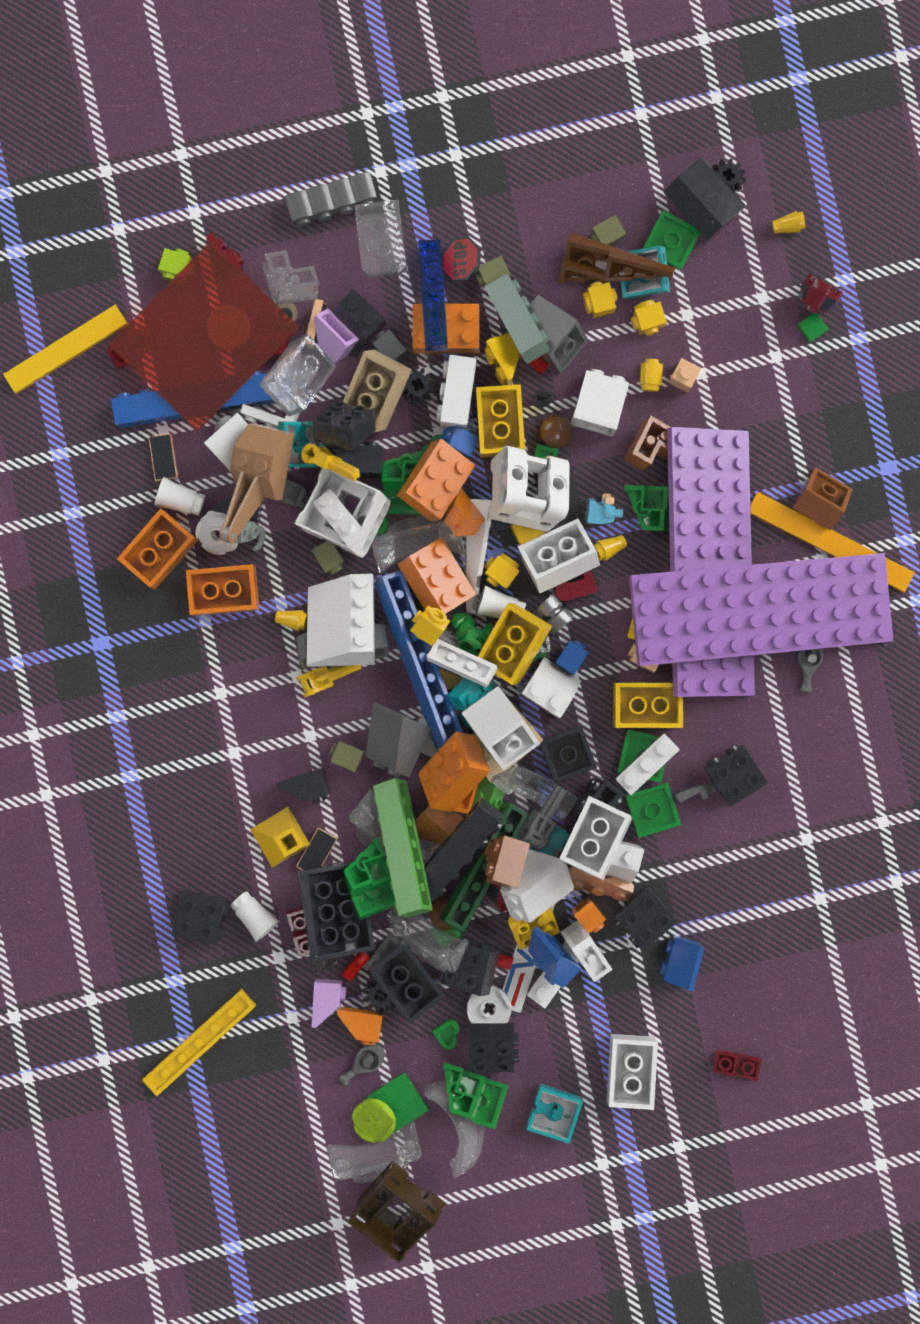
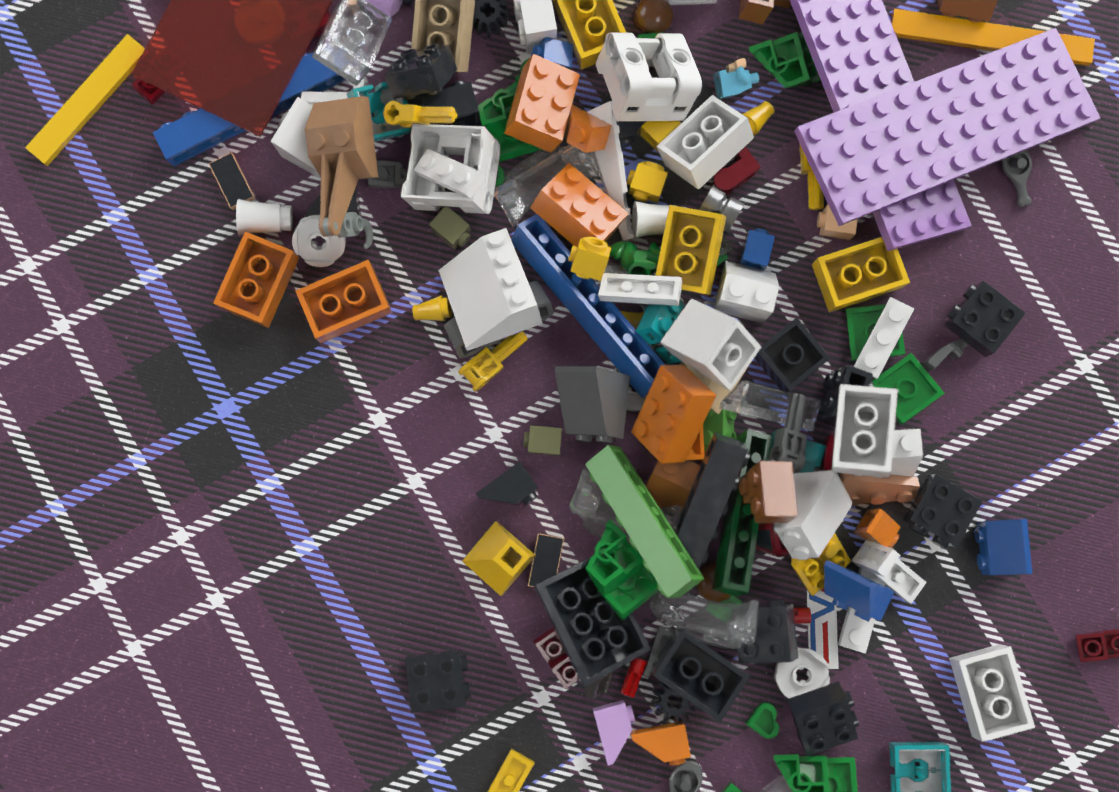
camera: 15 degrees left, 5 degrees down
(254, 916) = (498, 658): white plant -> none

